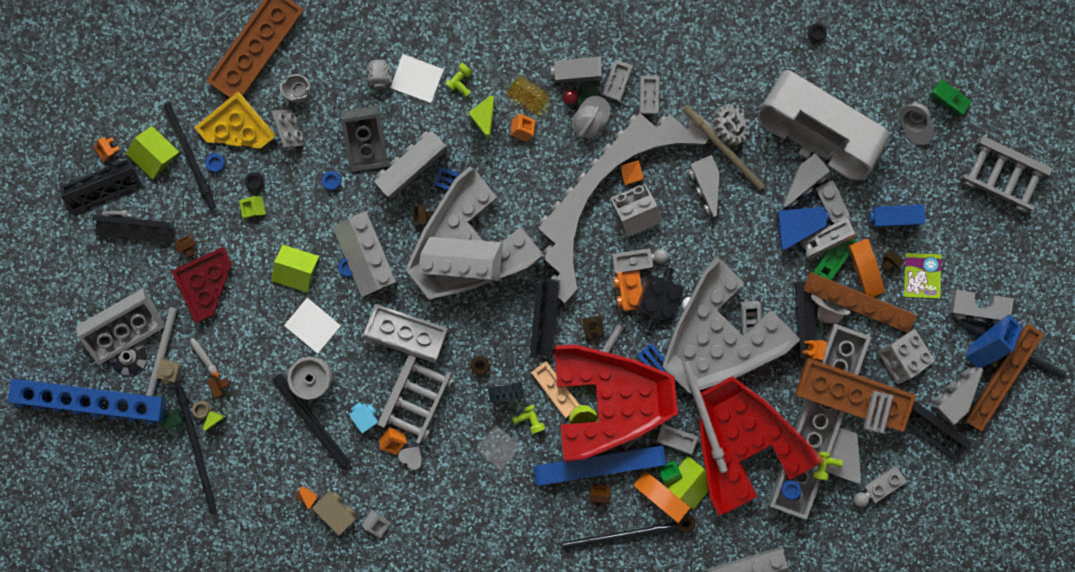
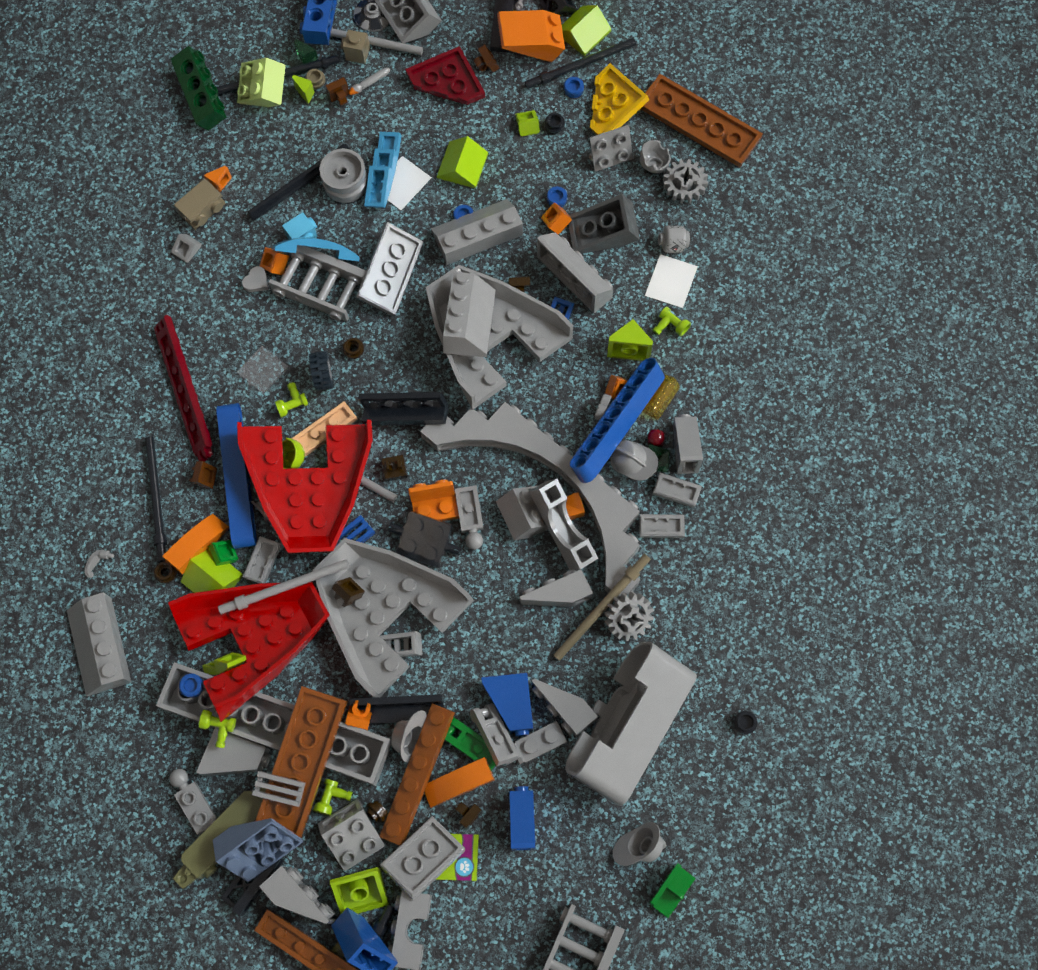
camera: 90 degrees right, 15 degrees down
(164, 201) = (532, 33): none -> orange slope
(206, 529) = (198, 88): none -> dark green brick
(209, 460) = (261, 83): none -> yellowish green slope
(302, 342) = (383, 170): none -> dark azure slope
(321, 52) = (675, 178): none -> light grey gear
(354, 181) = (556, 218): none -> orange slope
(386, 423) = (291, 246): none -> dark azure slope
(517, 517) = (183, 388): none -> dark red hinge
(543, 142) = (603, 406): none -> light grey tile
(564, 136) = (617, 420): none -> blue beam
(665, 173) = (571, 543): none -> light grey arch
(708, 361) = (347, 590): none -> dark brown tile
(771, 465) = (224, 663): none -> lime slope
(871, 372) = (330, 790): none -> lime piece
(888, 335) = (376, 811): none -> dark brown plate
(909, 461) = (200, 857): none -> olive hinge
(923, 432) = (253, 847): none -> sand blue slope
(926, 296) = (422, 858): none -> light grey tile
(950, 347) = (360, 891): none -> lime slope

